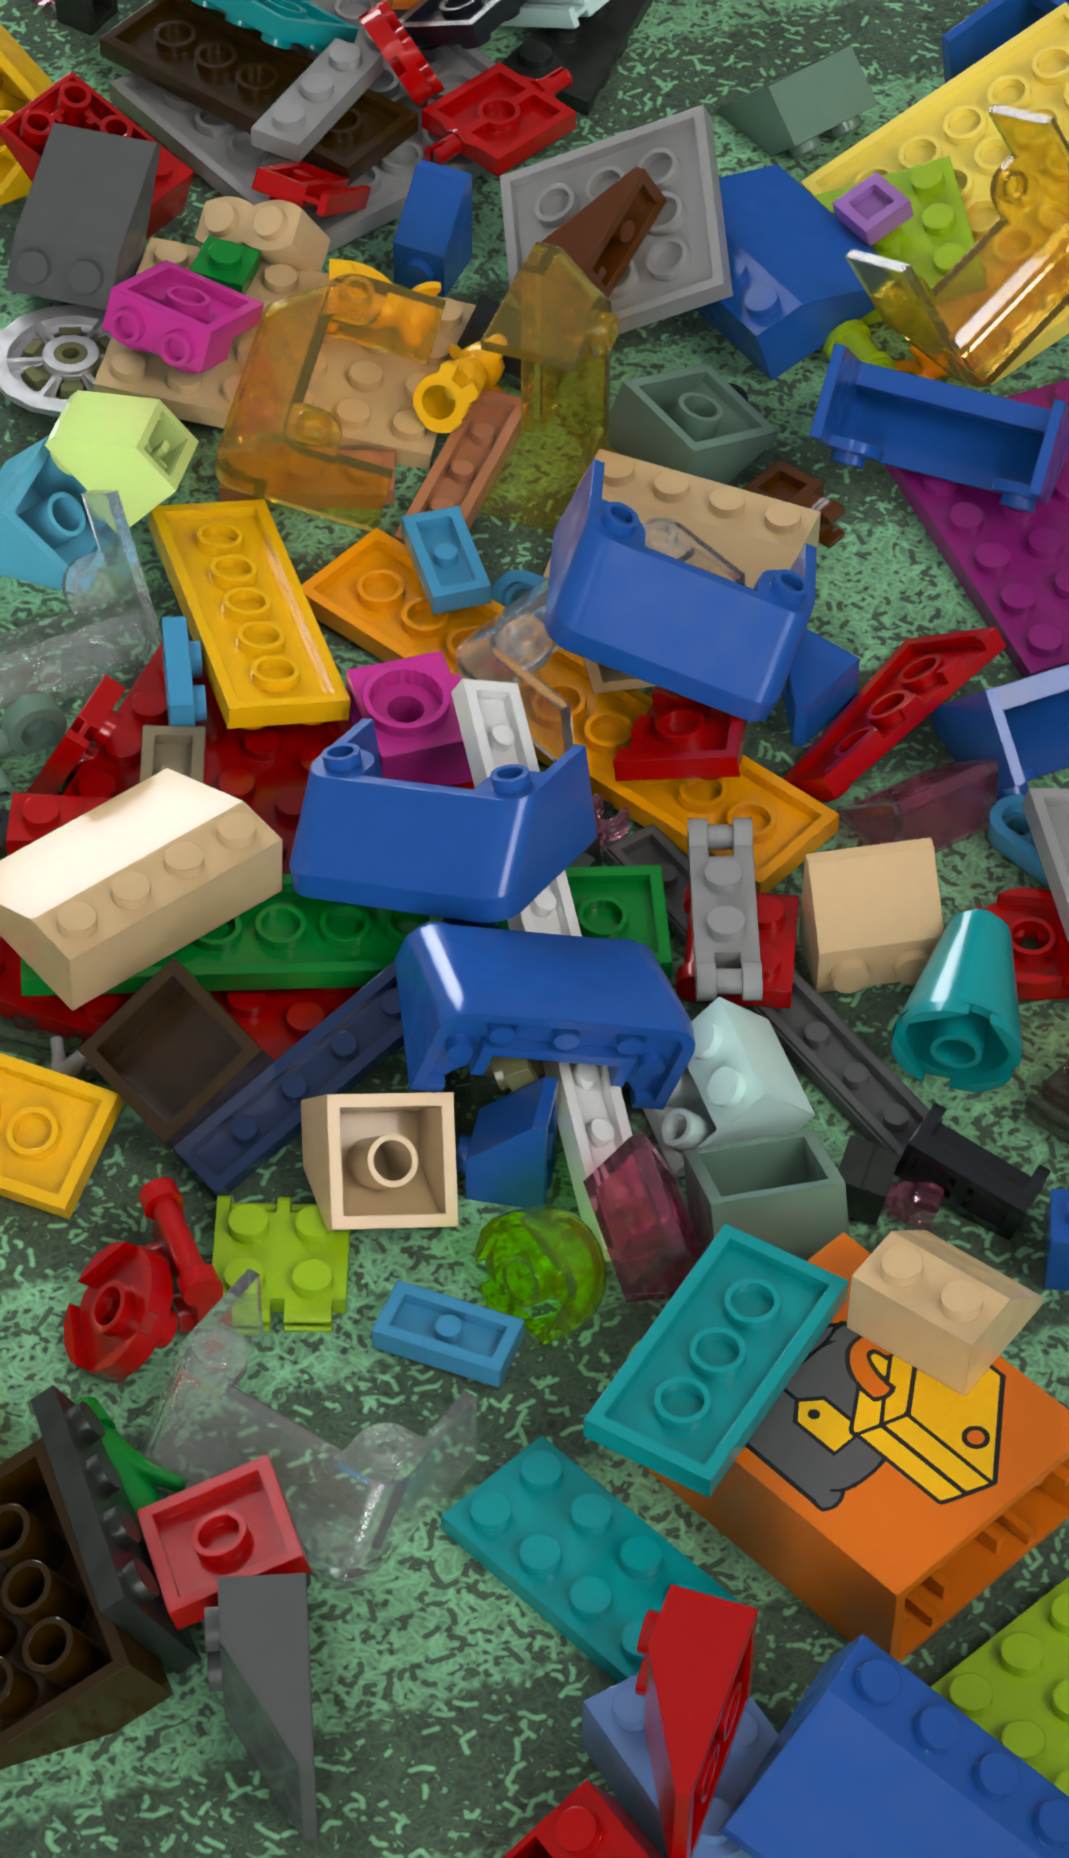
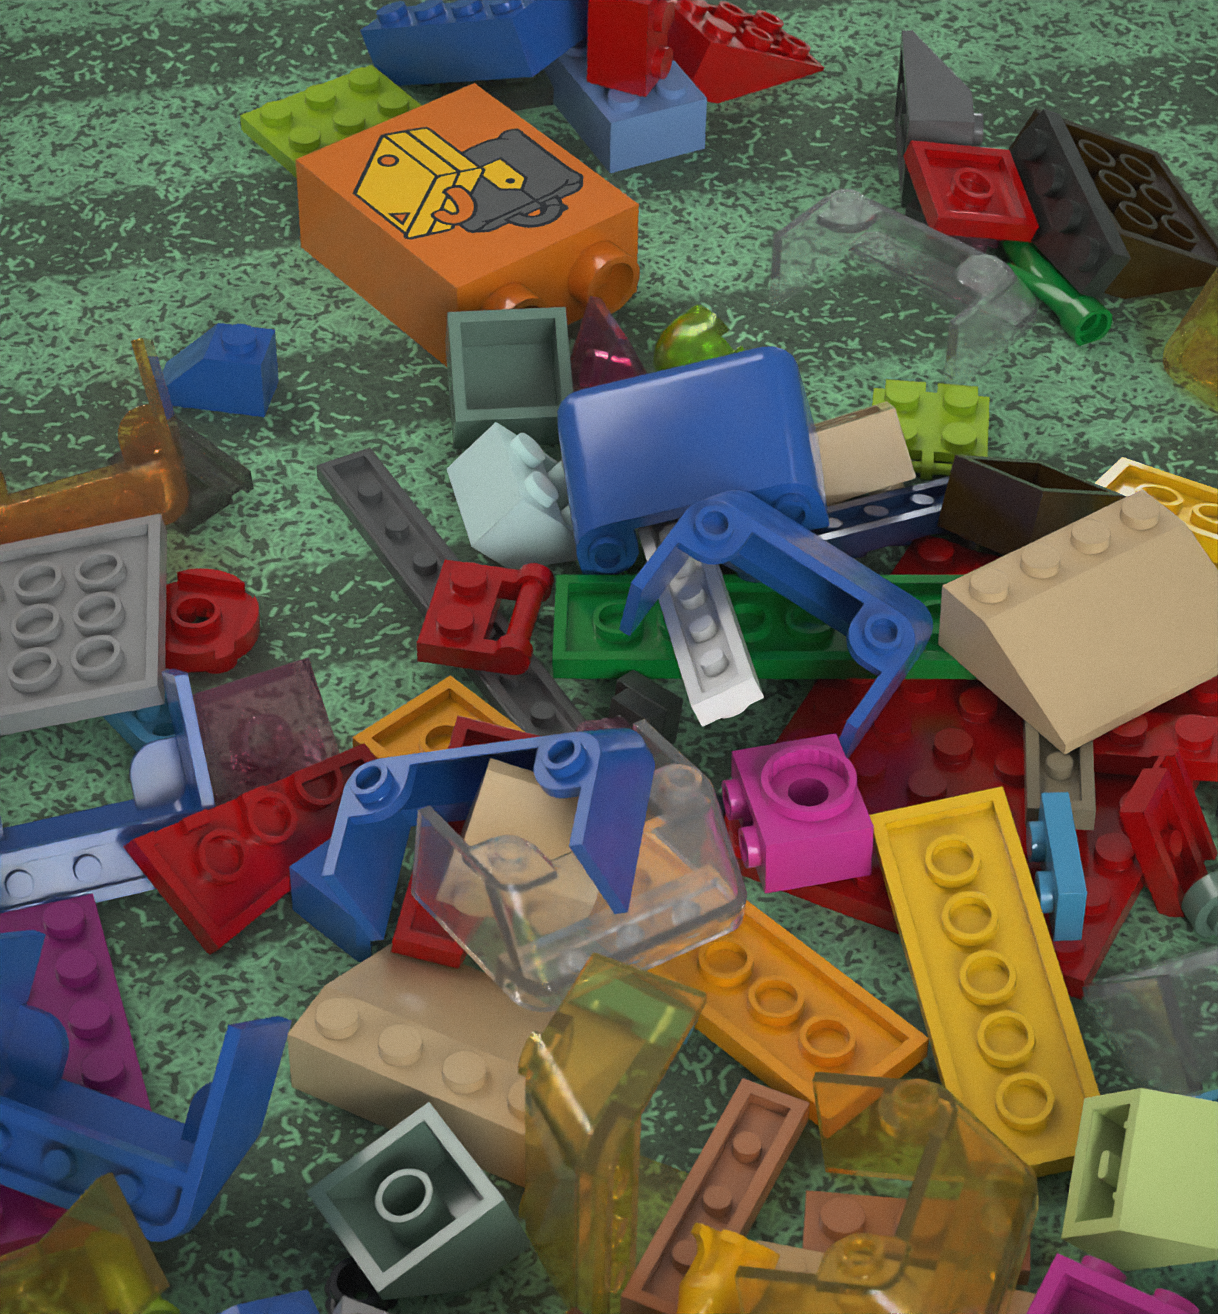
camera: 175 degrees left, 5 degrees down
(121, 1312) = (1060, 361): red plate -> none
(194, 1282) = (1012, 381): red plate -> none
(446, 559) = (750, 1024): dark azure plate -> none
(448, 1333) = (820, 364): dark azure plate -> none
(573, 1553) = (695, 230): teal plate -> none
(716, 1360) = (580, 190): teal plate -> none
(724, 910) = (498, 597): light grey plate -> none
(798, 488) = (308, 1138): reddish brown plate -> none
(869, 1187) = (412, 428): pearl dark grey piece -> none
(870, 914) = (353, 621): tan slope -> none
(937, 1307) = (392, 203): tan slope -> none
(964, 1008) = (289, 514): teal cone -> none
(971, 1176) = (319, 420): black hinge -> none

